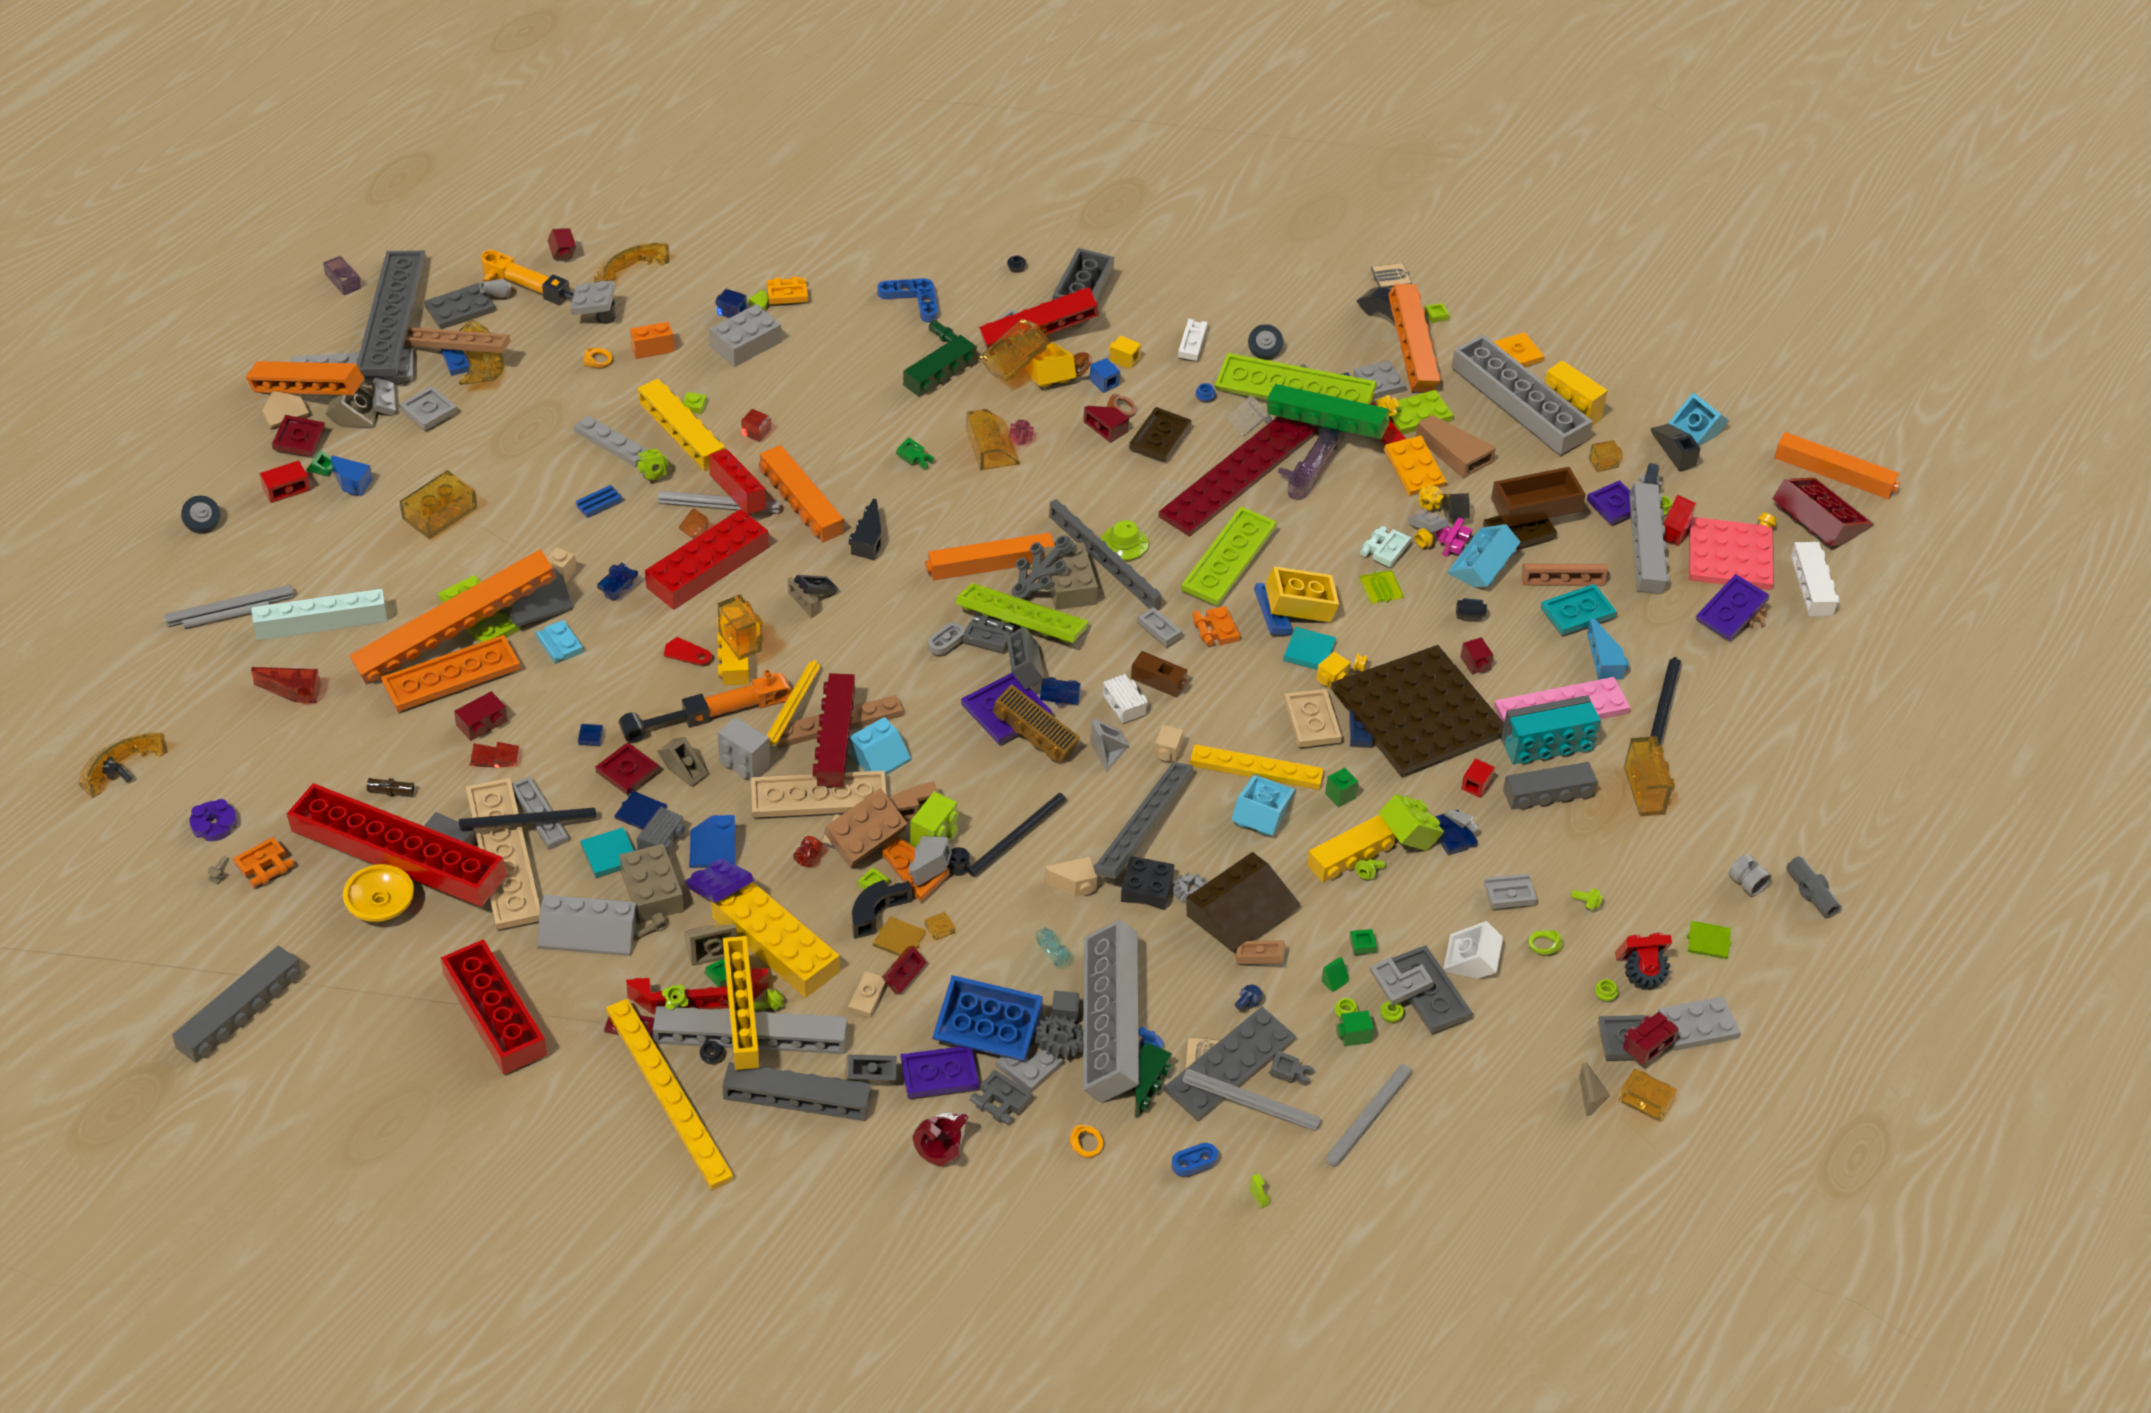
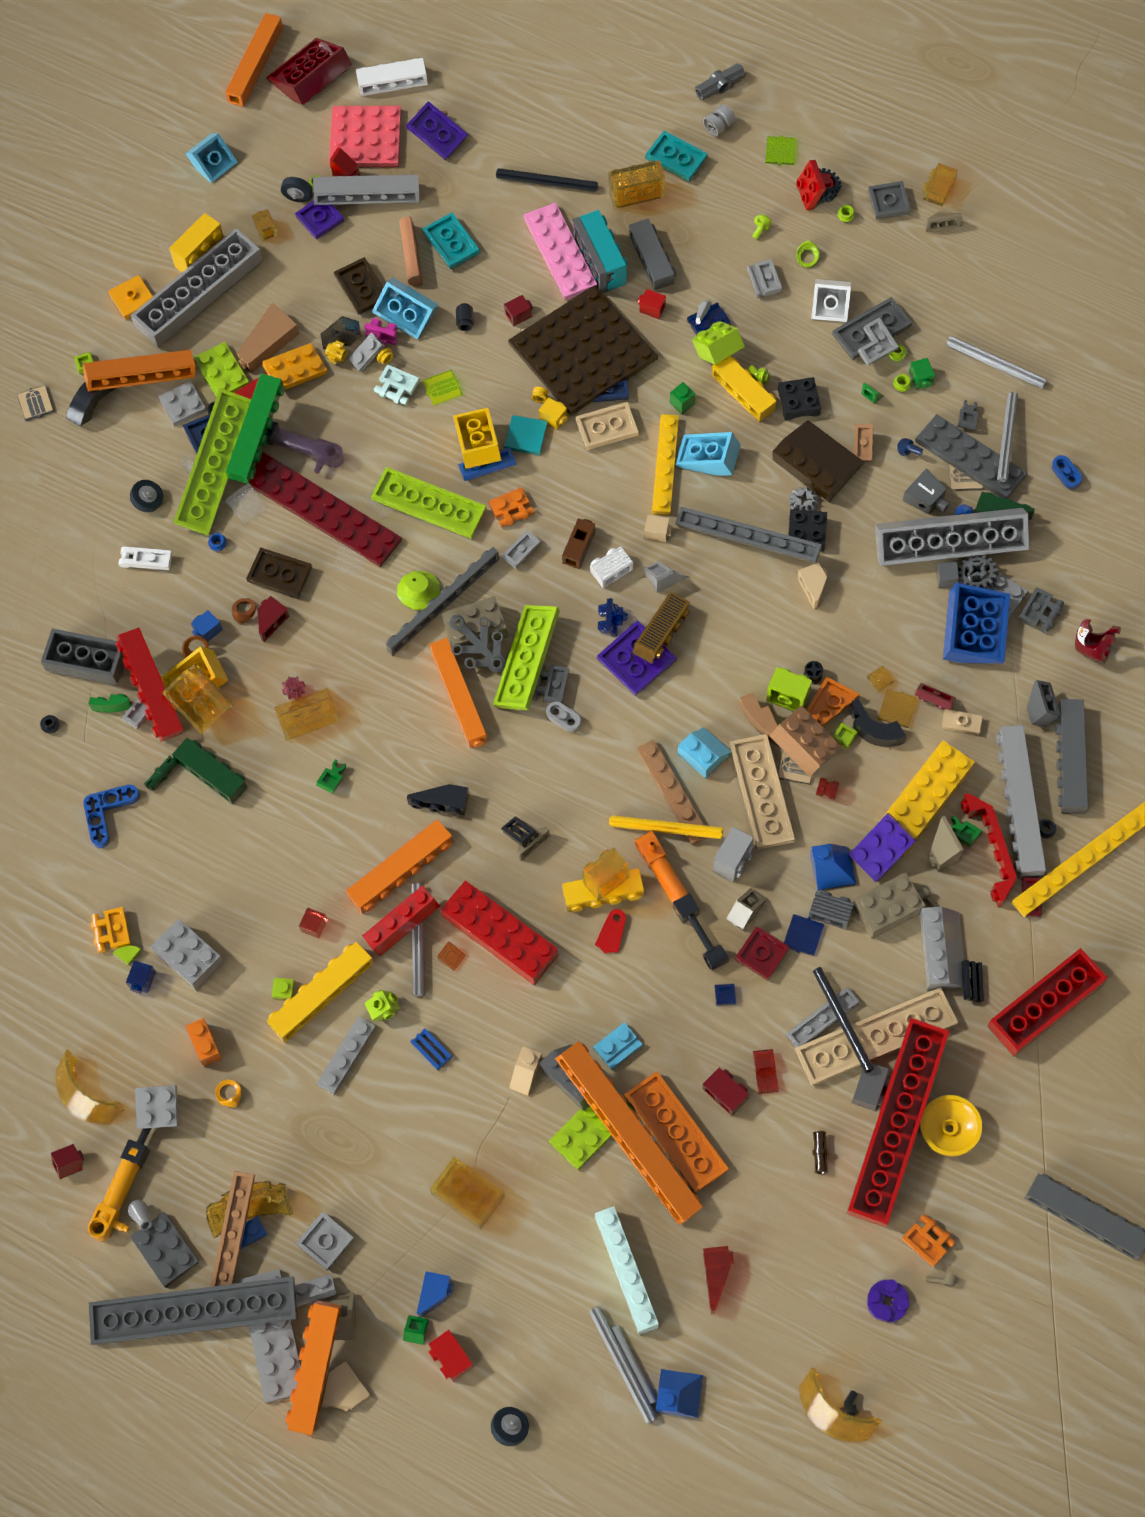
camera: 90 degrees left, 20 degrees up
(183, 640) = (679, 1393): none -> blue slope
(298, 435) = (383, 1360): dark red plate -> none
(339, 268) = (120, 1389): piece -> none
(521, 945) = (975, 981): none -> black tile
(604, 851) = (856, 950): teal tile -> none
(619, 578) = (540, 1005): clear blue hips -> none
(677, 991) = (1018, 855): lime plate -> none
(740, 1003) = (1017, 800): yellow brick -> none
(773, 1000) = (984, 790): lime plate -> none
(835, 730) = (698, 783): dark red brick -> none
(930, 858) = (828, 686): light grey slope -> none
(939, 1071) = (1028, 657): dark purple plate -> none
(1016, 835) = (771, 632): black piece -> none
(1025, 658) = (588, 644): dark grey brick -> none
(1030, 296) = (115, 704): none -> green slope
(1052, 947) = (893, 586): clear light blue plate -> none
(1074, 1141) = (1061, 554): light orange piece -> none
(1124, 352) = (172, 613): yellow brick -> none
(1182, 1005) = (926, 493): none -> dark grey torso
(1257, 1190) = (1083, 427): lime tile -> none
(1331, 900) = (799, 398): none -> black brick
(1363, 941) = (835, 374): green plate -> none
(1389, 403) = (231, 385): yellow gear -> none
(1538, 496) = (337, 265): reddish brown piece -> none
(1606, 653) = (500, 219): dark azure slope -> none
(1650, 1037) = (896, 178): dark red brick -> none
(1678, 445) = (246, 170): black slope -> none
(1697, 829) = (676, 156): none -> teal plate
(1702, 1023) = (862, 156): light grey plate -> none
(1767, 520) = (328, 108): yellow plate -> none

